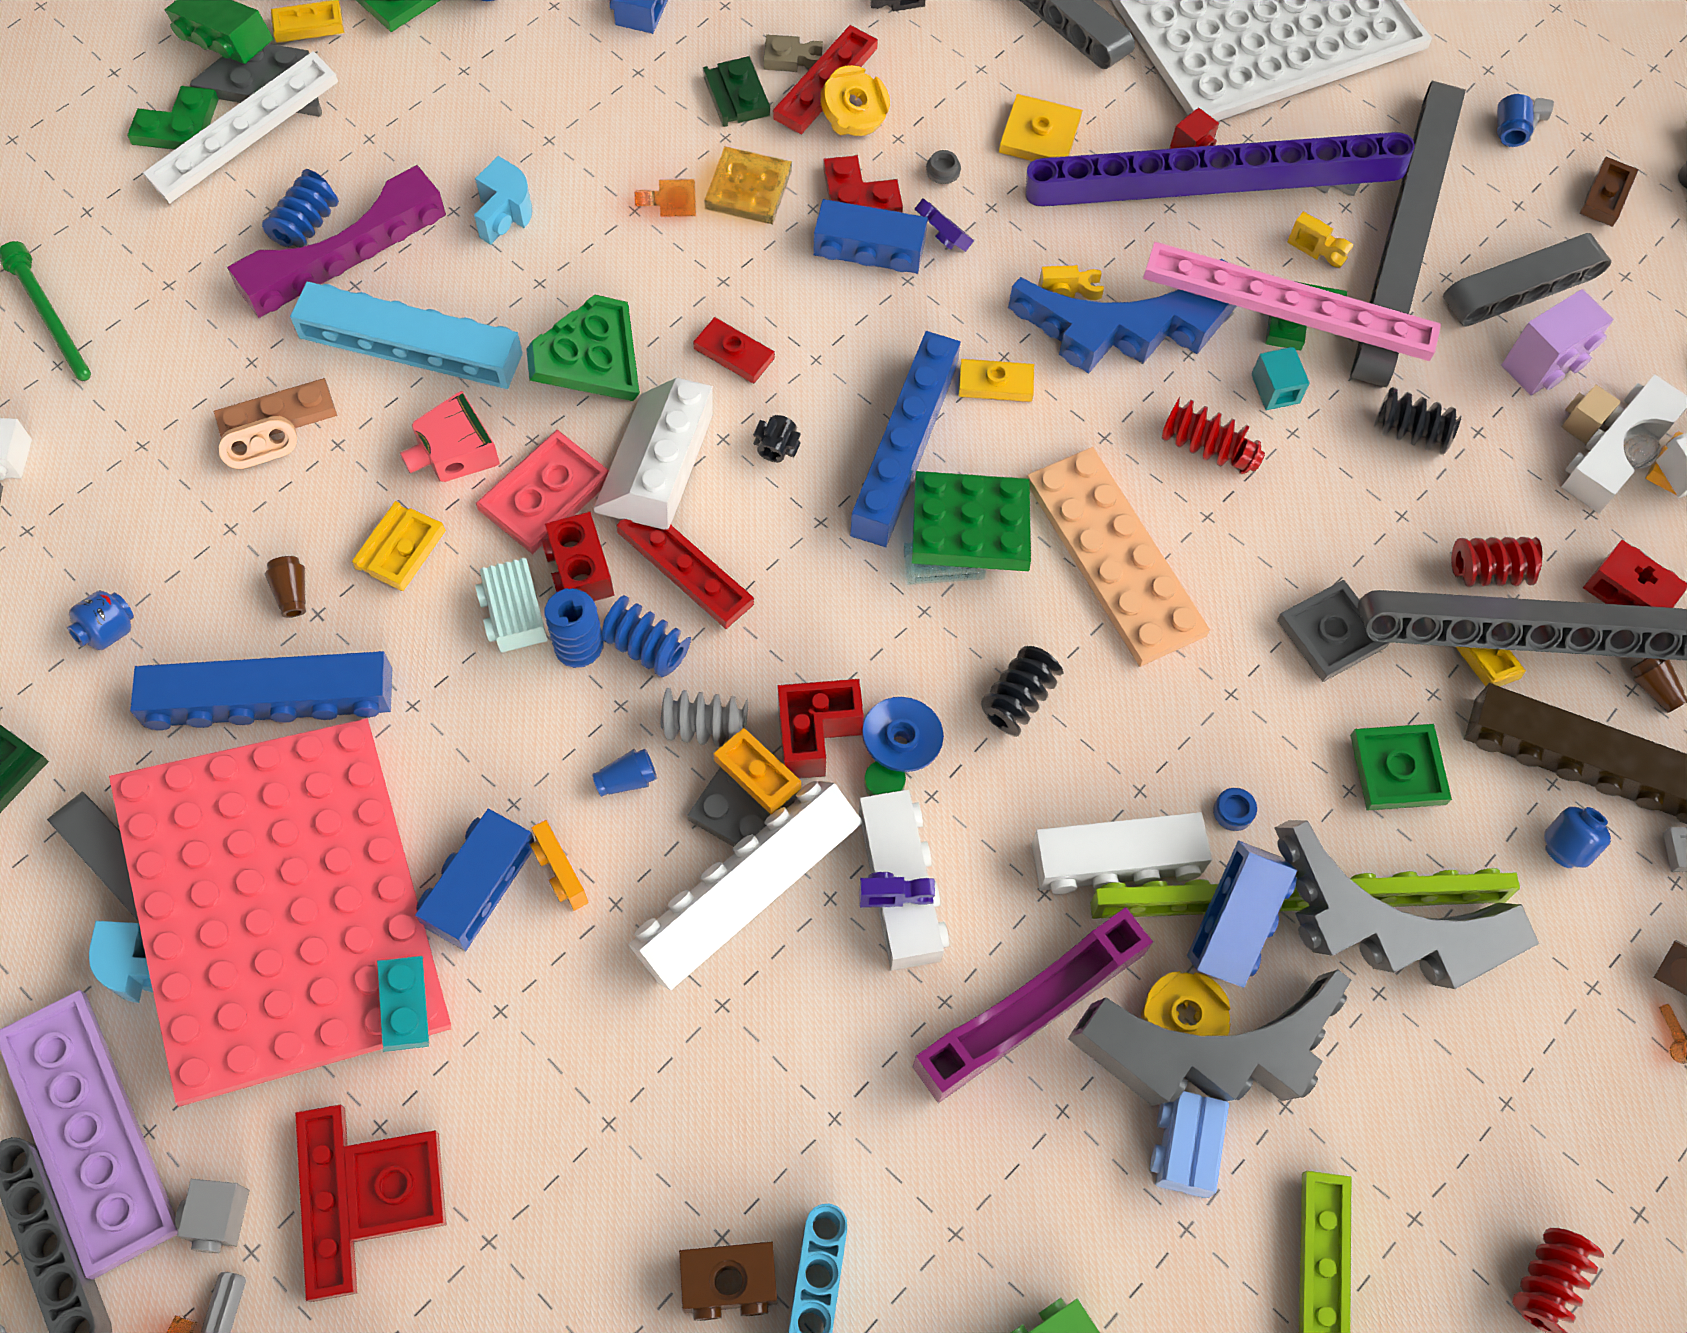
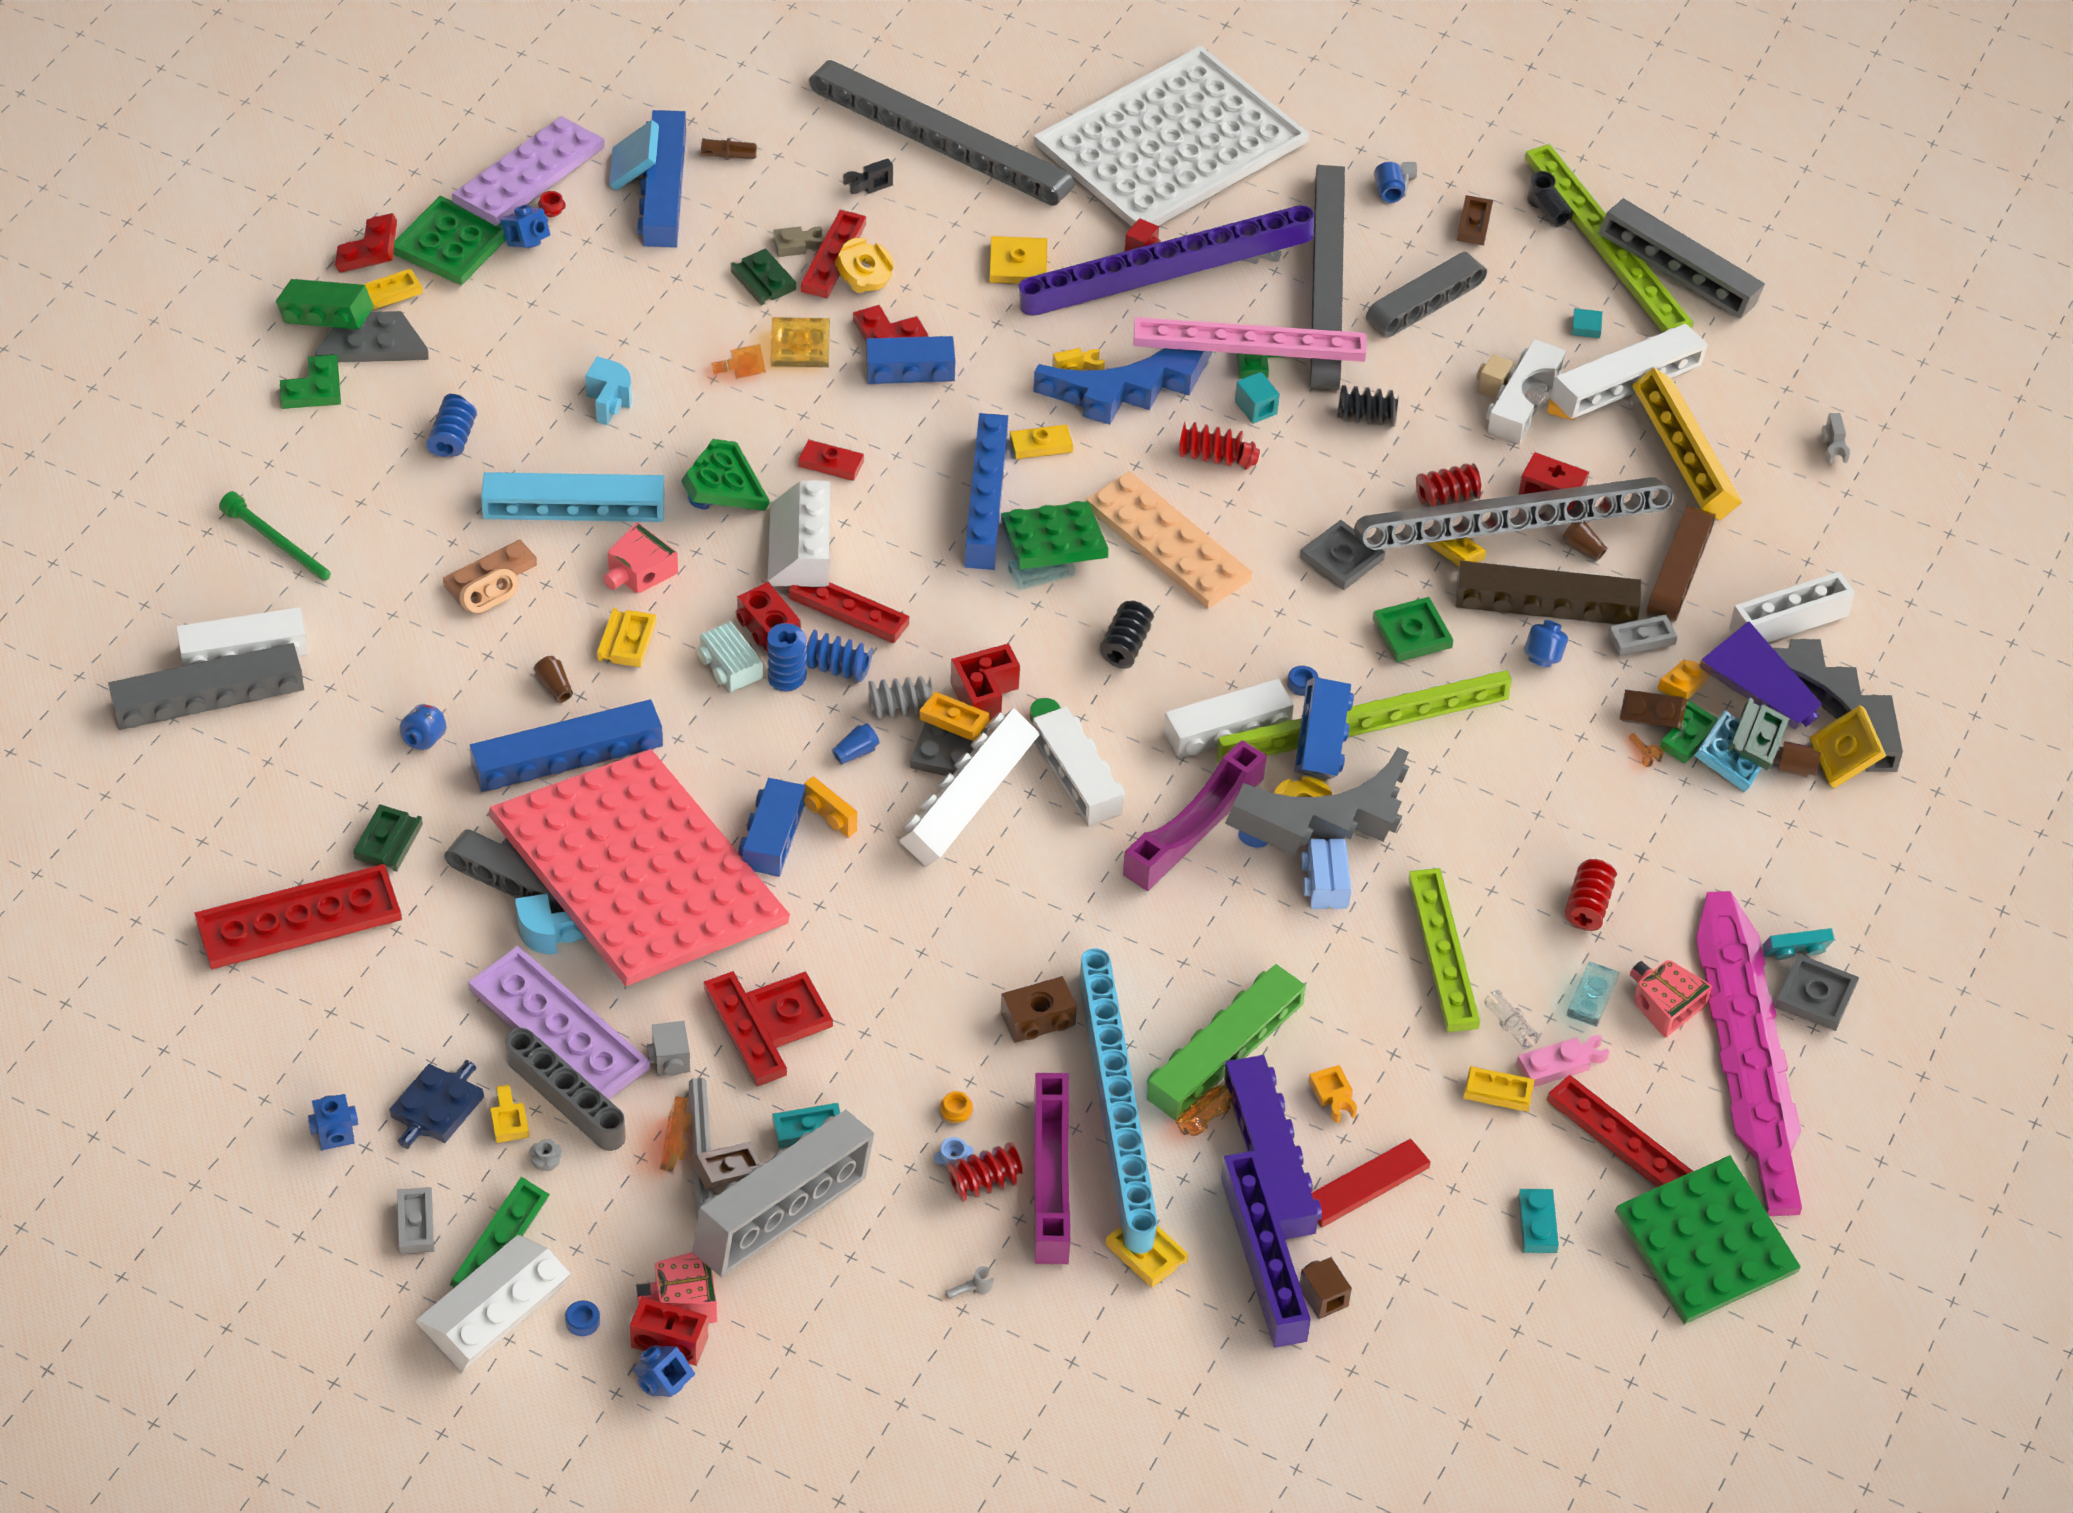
camera: 15 degrees left, 15 degrees down
(240, 127) = (375, 376): white plate -> none
(278, 276) = (452, 476): magenta arch -> none
(403, 1004) = (755, 901): teal plate -> none
(543, 488) = (718, 580): coral tile -> none
(776, 438) = (888, 510): black gear -> none
(885, 890) = (1074, 761): dark purple plate -> none
(905, 719) = (1049, 678): blue dish -> none
(943, 167) = (950, 300): dark grey plate -> none
(948, 231) = (970, 345): dark purple plate -> none
(1315, 239) = (1257, 297): yellow plate -> none
(1343, 914) = (1428, 721): arch -> none
(1557, 342) = (1457, 331): lavender brick -> none

